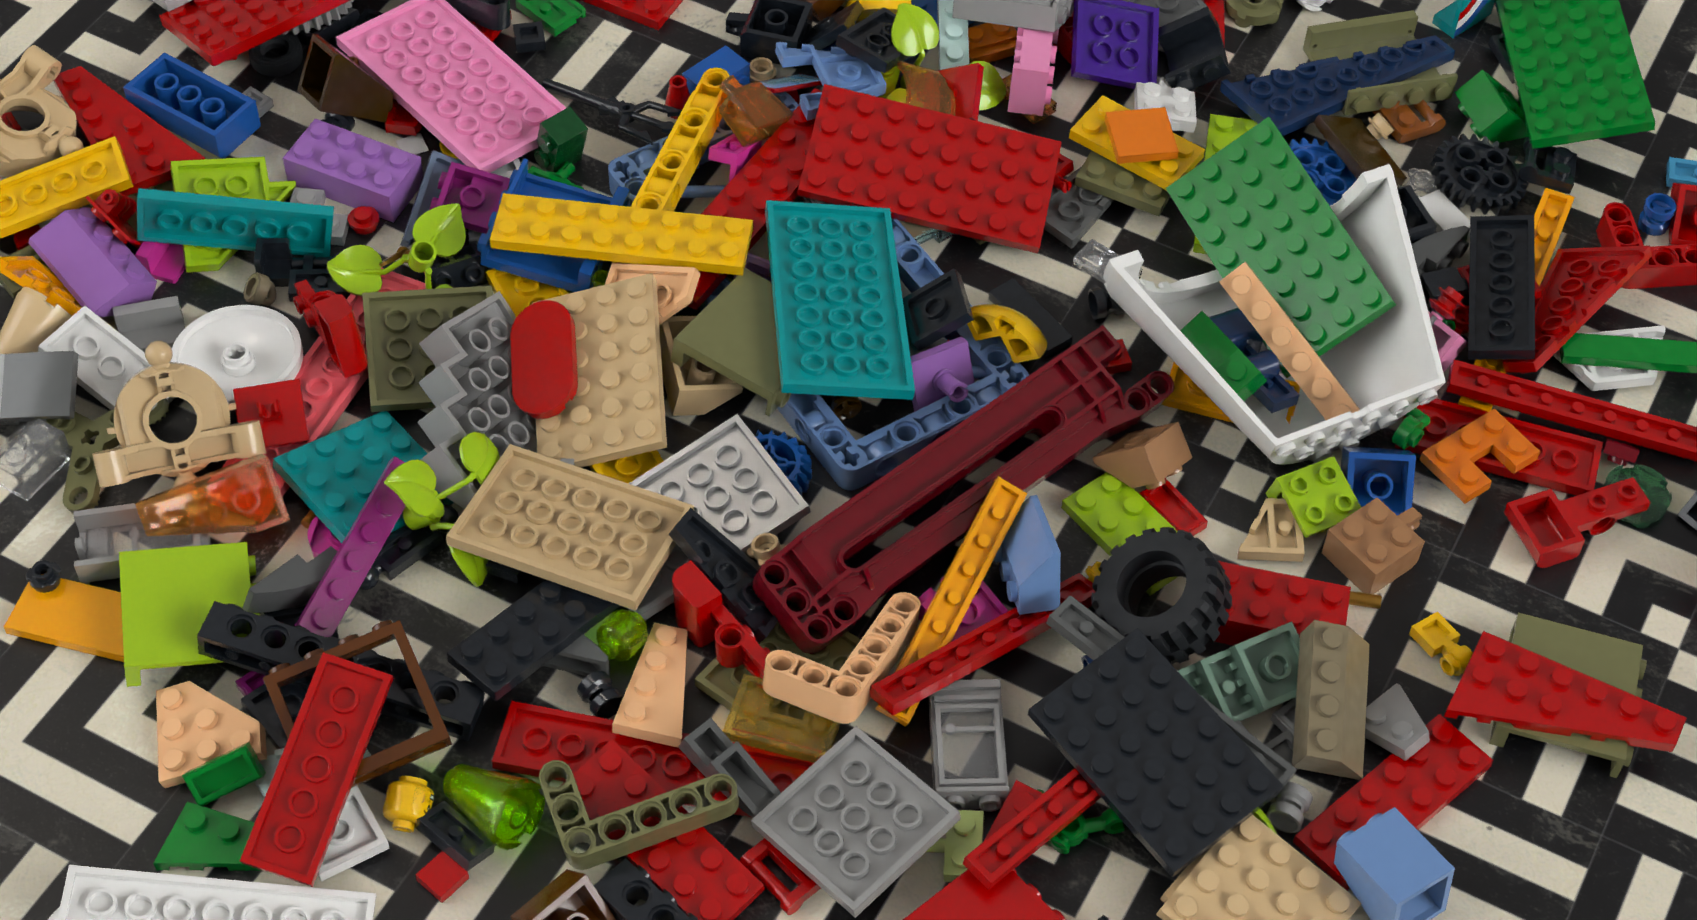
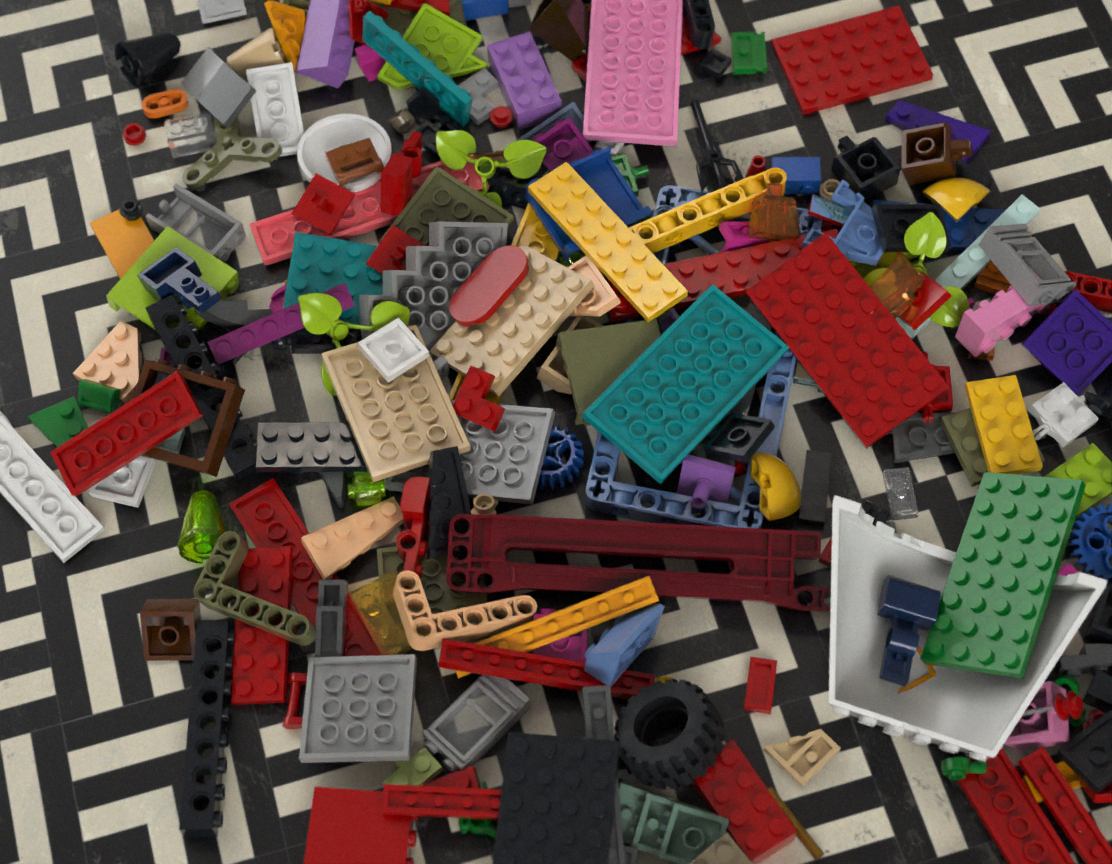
camera: 50 degrees right, 10 degrees up
(145, 453) = (288, 178): tan piece -> none
(150, 321) = (326, 98): light grey panel -> none
(191, 580) = (179, 276): none -> dark blue plate
(221, 502) = (249, 238): clear orange wedge -> none
(256, 347) = (351, 157): none -> dark orange plate
(401, 406) = (392, 251): none -> red piece
(406, 802) = (167, 491): yellow head -> none
(413, 144) = (577, 88): white sticker -> none
(442, 876) = (145, 546): red tile -> none
(455, 835) = (169, 528): black plate -> none
(520, 476) = (393, 349): none -> white plate
(560, 140) = (649, 149): dark green brick -> none
(600, 694) = (320, 514): black wheel -> none
(655, 470) = (471, 400): none -> red plate
(829, 28) = (897, 194): black plate -> none
(1113, 512) = (722, 669): lime plate -> none
(1141, 135) = (1003, 423): orange tile -> none
(1146, 456) = (774, 637): medium nougat slope -> none
(1224, 356) = (876, 617): green slope -> none
(1287, 343) = (934, 648): light nougat plate -> none
(1316, 496) = (850, 758): lime bracket -> none
(1374, 545) = (854, 819): medium nougat hinge -> none
(1380, 475) = (905, 780): blue slope -> none
(1455, 455) = (971, 807): orange plate -> none

